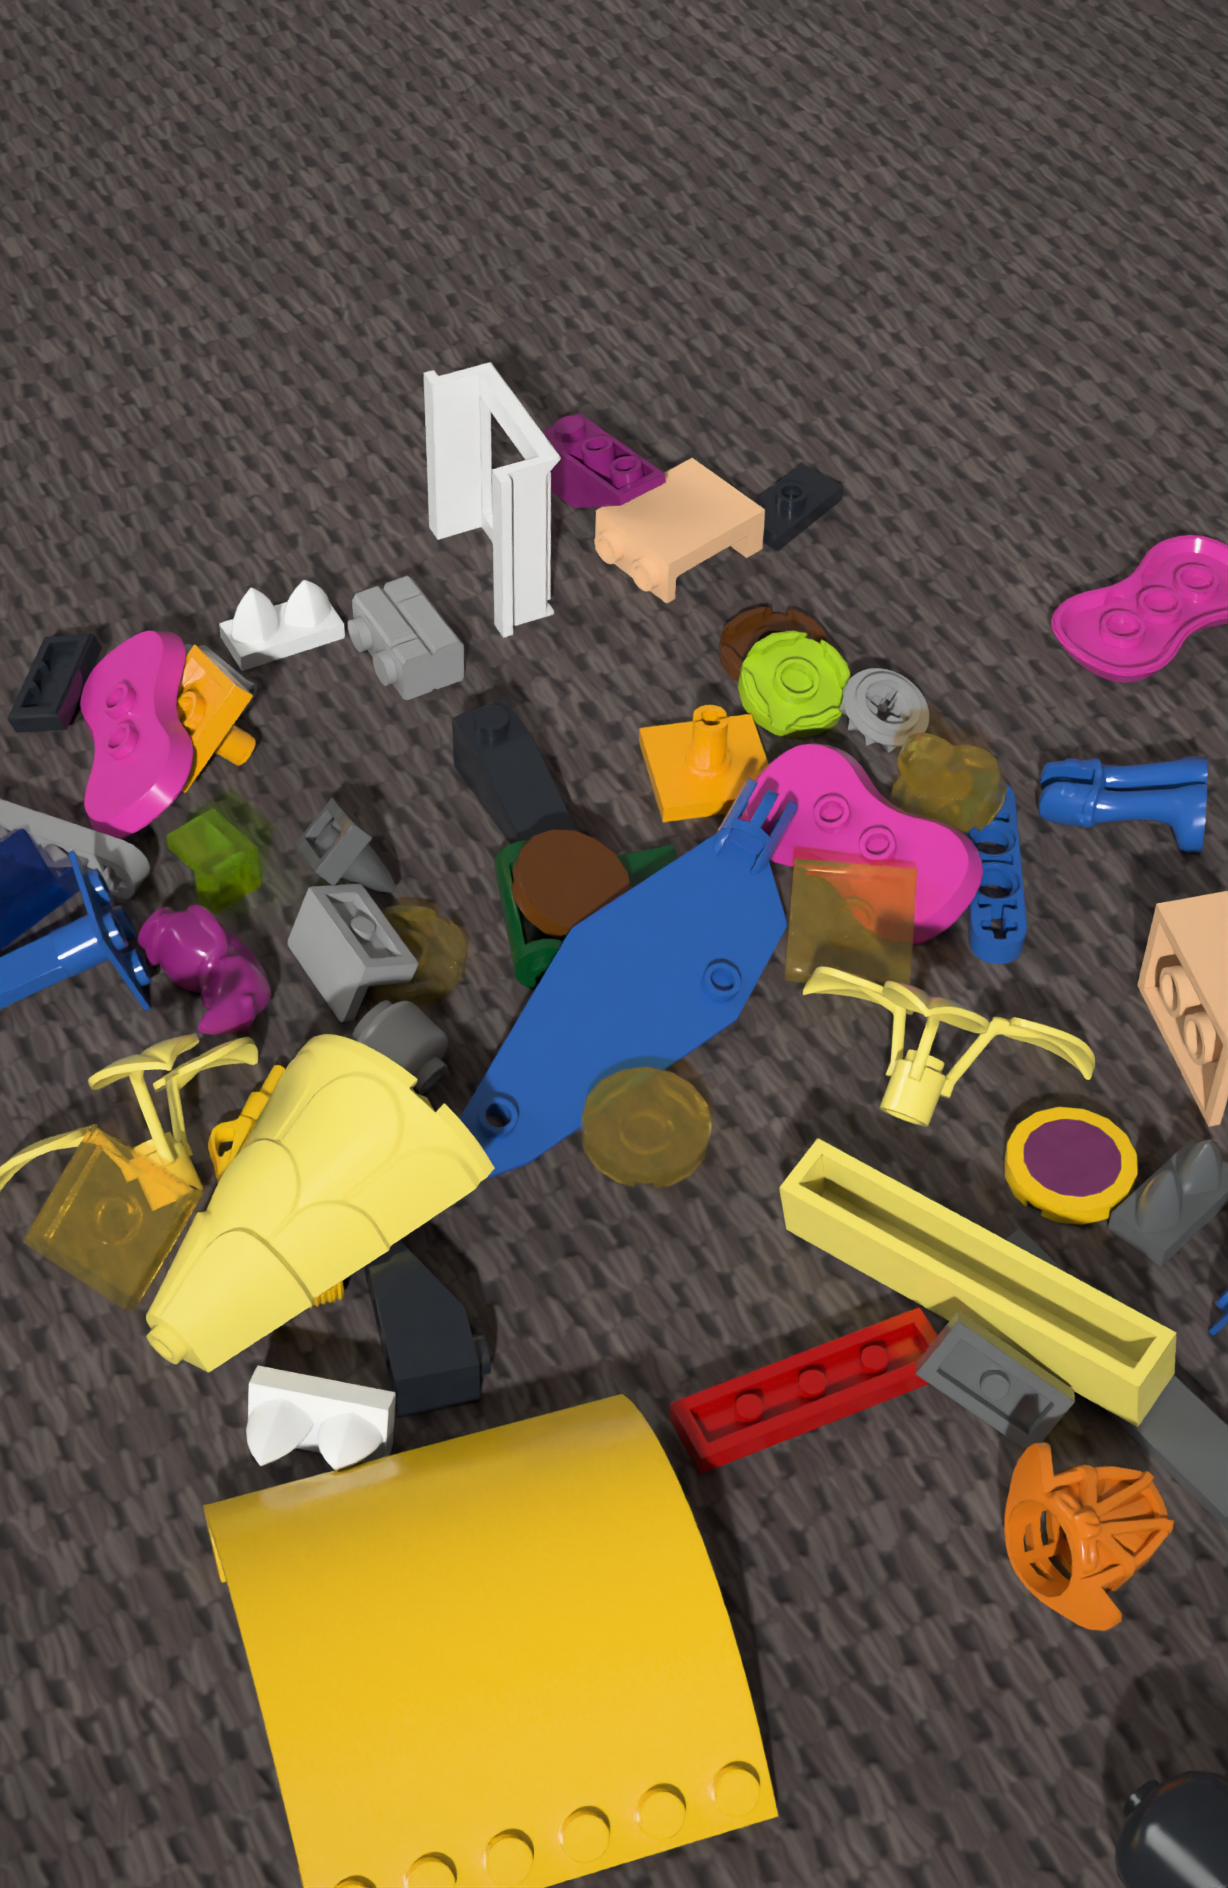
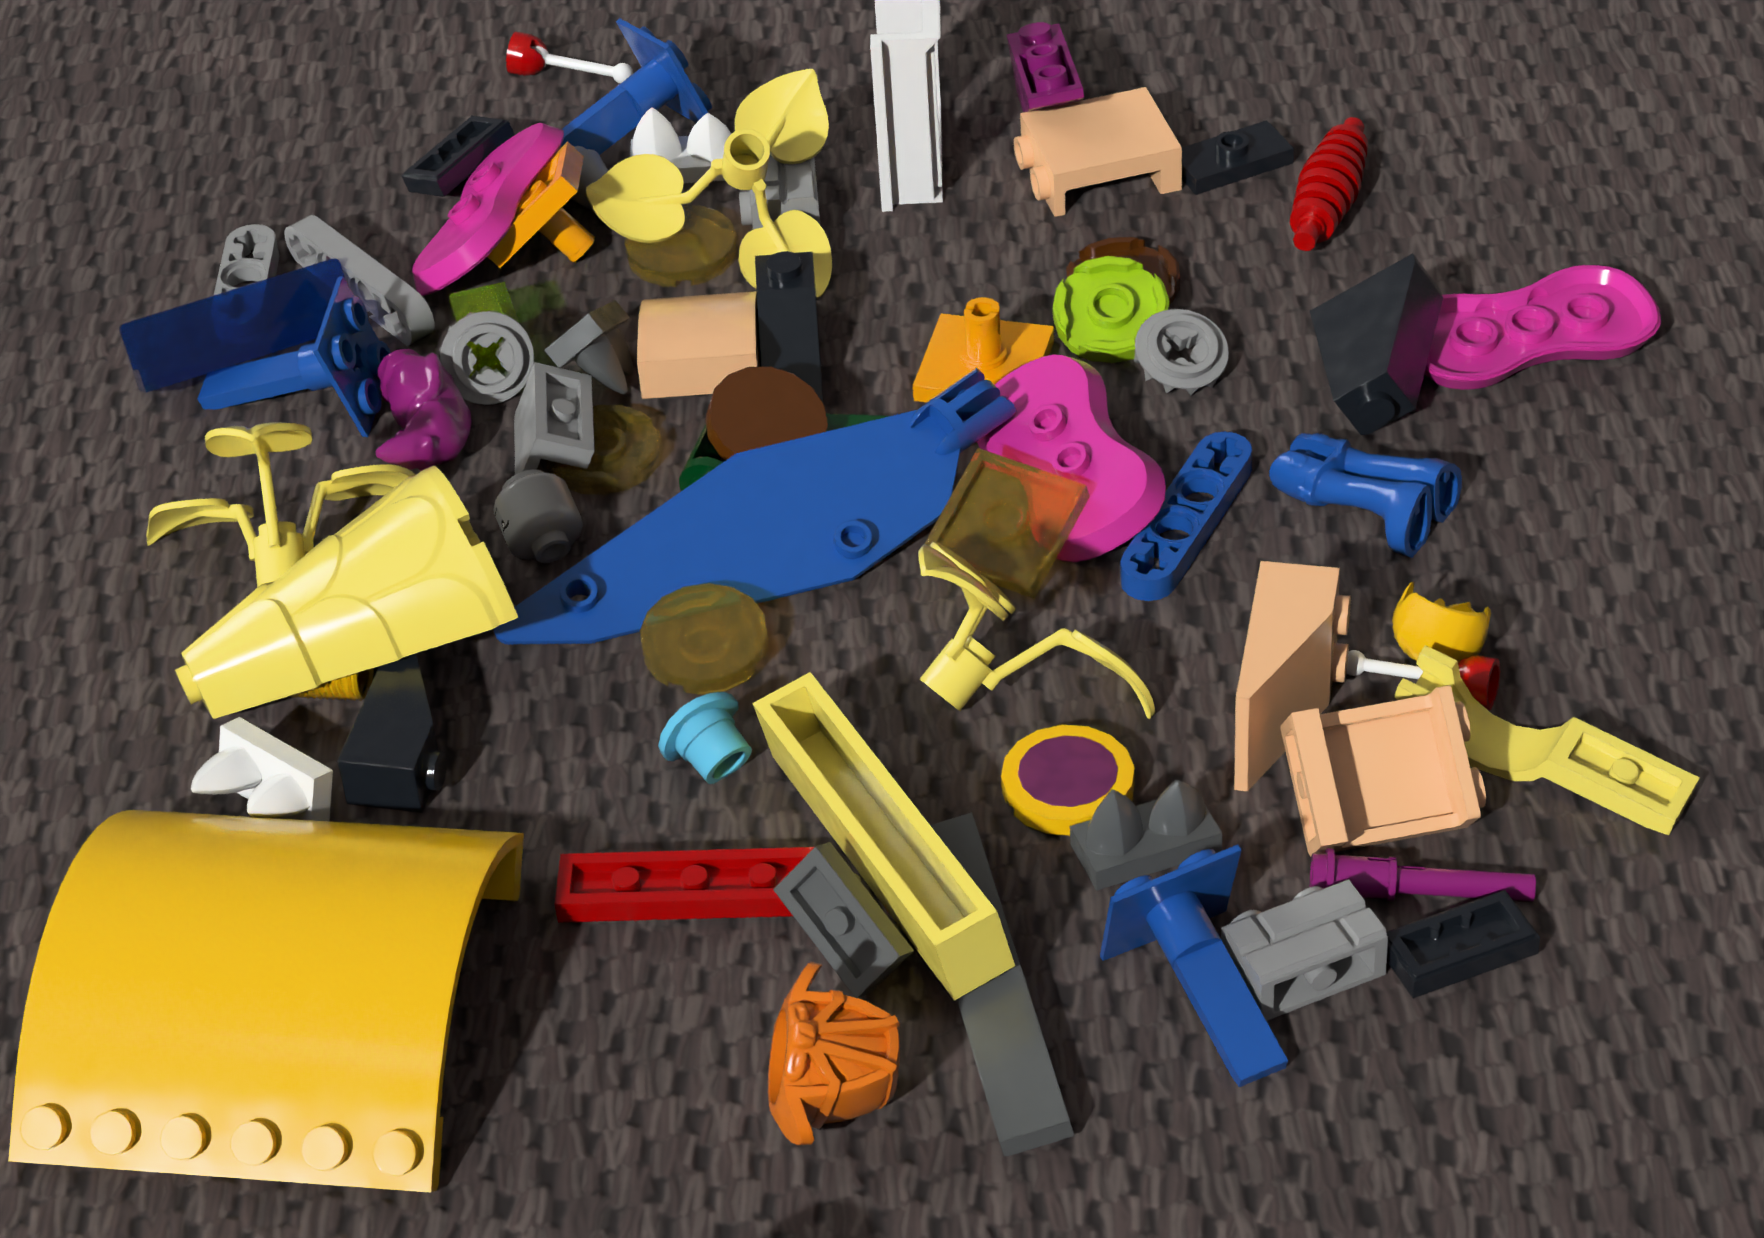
camera: 30 degrees right, 5 degrees down
(57, 558) = (529, 56): none -> hinge
(112, 1218) = (210, 572): clear yellow tile -> none
(231, 554) = (655, 84): none -> blue piece
(260, 875) = (515, 354): none -> light grey gear
(338, 721) = (696, 254): none -> clear yellow tile
(386, 570) = (778, 119): none -> light yellow plant
(434, 817) = (695, 342): none -> light nougat slope
(728, 1233) = (706, 736): none -> medium azure piece
(900, 513) = (1329, 184): none -> red piece
(948, 782) = (1176, 427): clear yellow tile -> none
(1060, 659) = (1379, 343): none -> black slope

